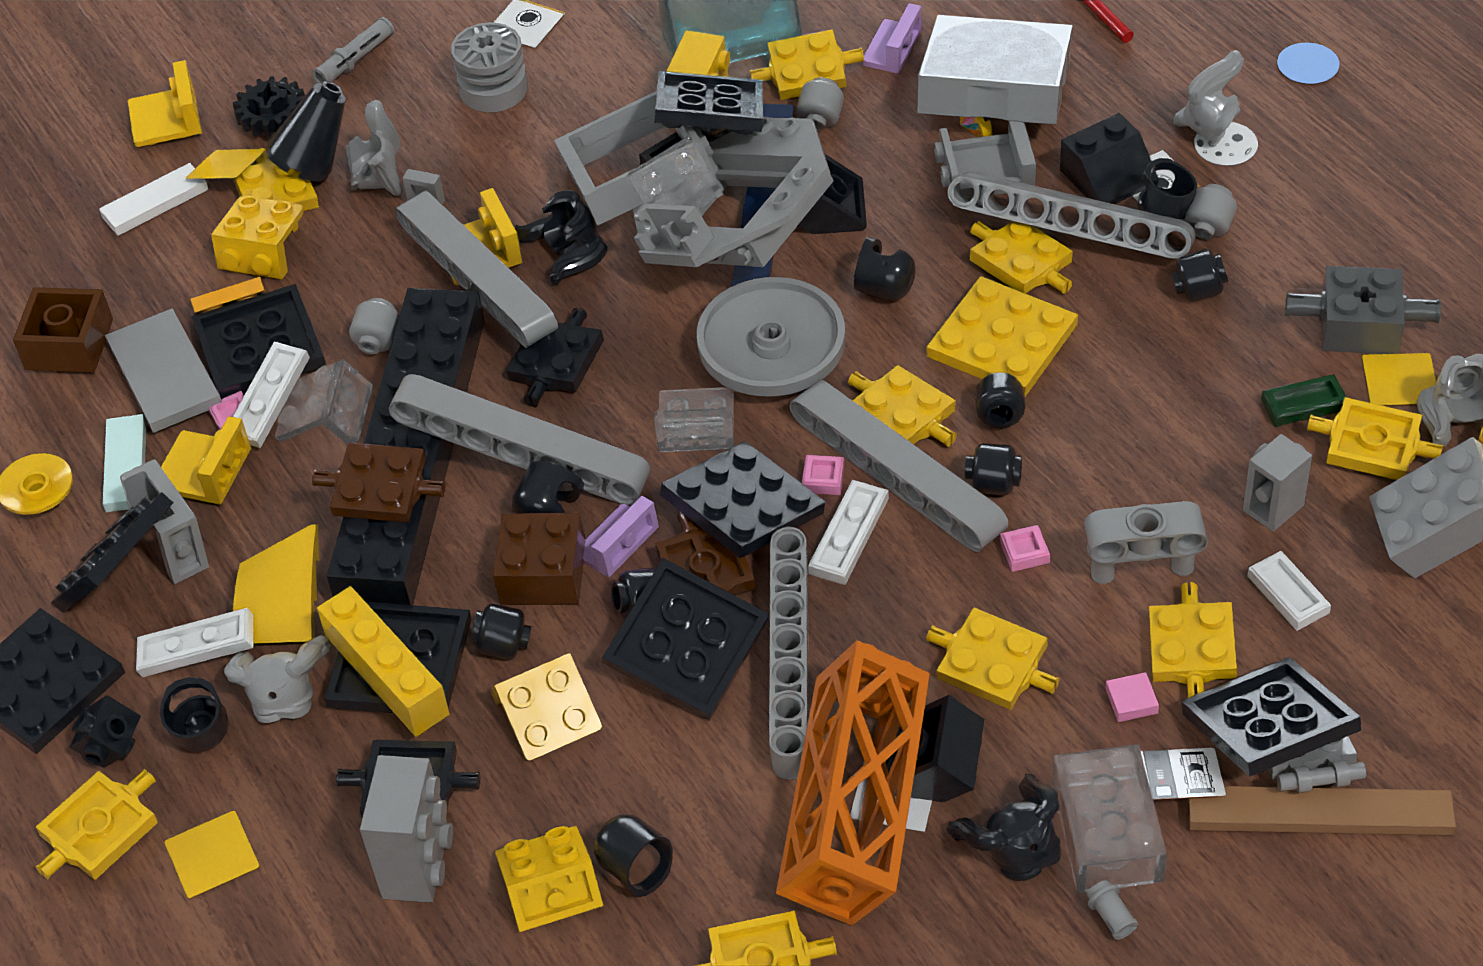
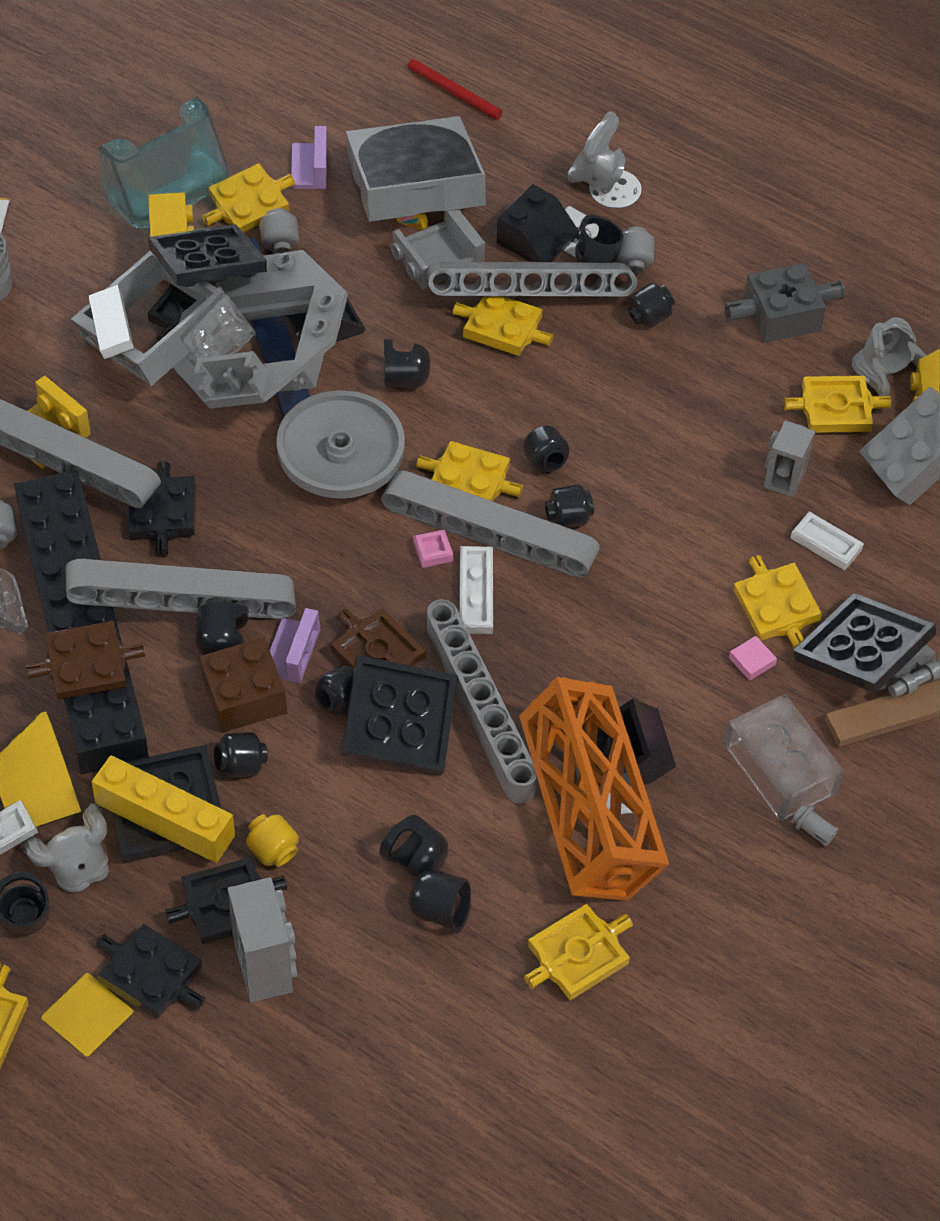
camera: 30 degrees left, 5 degrees up
(294, 830) = (150, 971): none -> black plate
(486, 731) = (272, 840): none -> yellow head
(547, 707) = (310, 803): yellow bracket -> none
(548, 877) = (382, 939): yellow bracket -> none
(570, 234) = (125, 397): black hair -> none
(582, 149) = (111, 322): none -> white tile
(646, 795) = (423, 849): none -> black helmet
(695, 419) = (310, 530): clear bracket -> none
(742, 498) = (383, 587): plate -> none
(992, 658) = (636, 659): yellow plate -> none
(1003, 333) = (517, 392): yellow plate -> none
(1014, 829) = (724, 789): black hair -> none
(1024, 548) = (618, 564): bright pink tile -> none
(1144, 535) = (714, 528): light grey piece -> none
(1183, 773) = (821, 704): sticker -> none
(1302, 399) = (770, 386): dark green tile -> none
(1308, 63) = (647, 105): light blue sticker -> none
(1398, 377) = (829, 349): yellow sticker -> none

